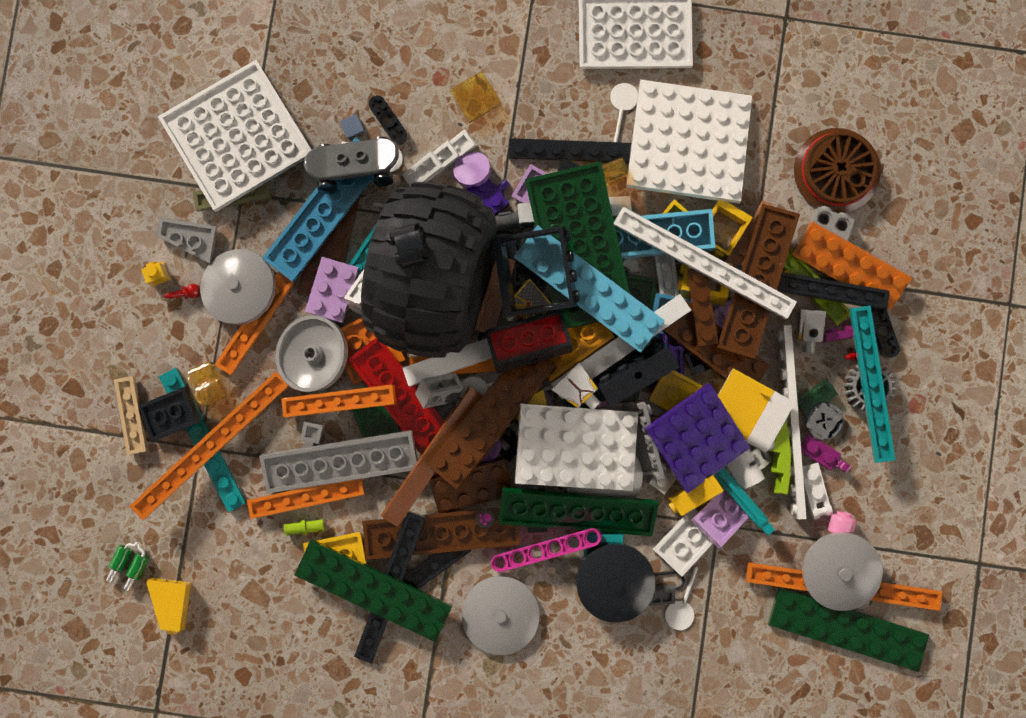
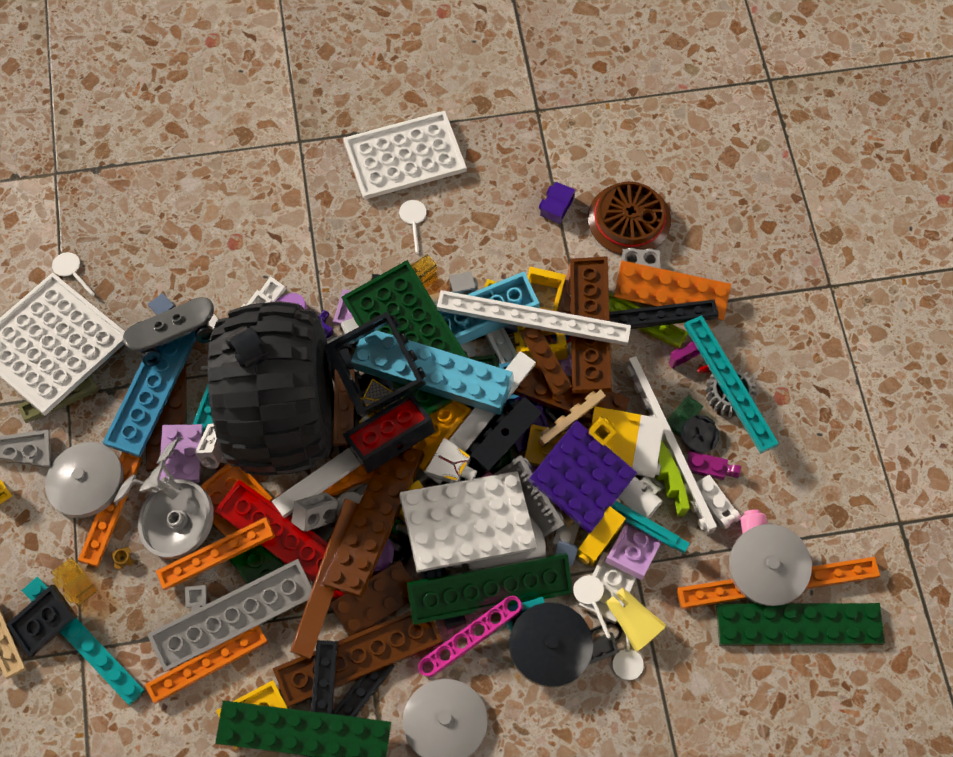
camera: 20 degrees left, 20 degrees down
(191, 291) = (37, 499): red bar -> none
(209, 446) = (90, 641): orange plate -> none
(250, 369) = (123, 552): none -> pearl gold plate
(272, 53) = (66, 265): none -> white piece
(293, 326) = (165, 485): none -> light grey plant
(304, 527) = (212, 695): lime pin -> none
(376, 112) = (192, 283): black beam -> none
(475, 97) = (273, 248): clear yellow plate -> none
(485, 518) = (398, 625): clear smoke tile -> none
(570, 150) = (363, 272): black plate -> none
(646, 202) = (463, 283): none -> light grey brick
(659, 494) = (569, 548): none -> sand blue tile
(667, 541) = (589, 591): none -> white piece
(689, 141) = (485, 229): white plate -> none
(700, 582) = (635, 619): none -> light yellow piece
(714, 371) = (576, 413): none -> tan plate
(734, 397) = (602, 430): none -> yellow brick
(771, 132) = (557, 202): none -> dark purple brick
(810, 320) = (655, 353): light grey torso -> none
(891, 334) = (726, 333): black beam -> none

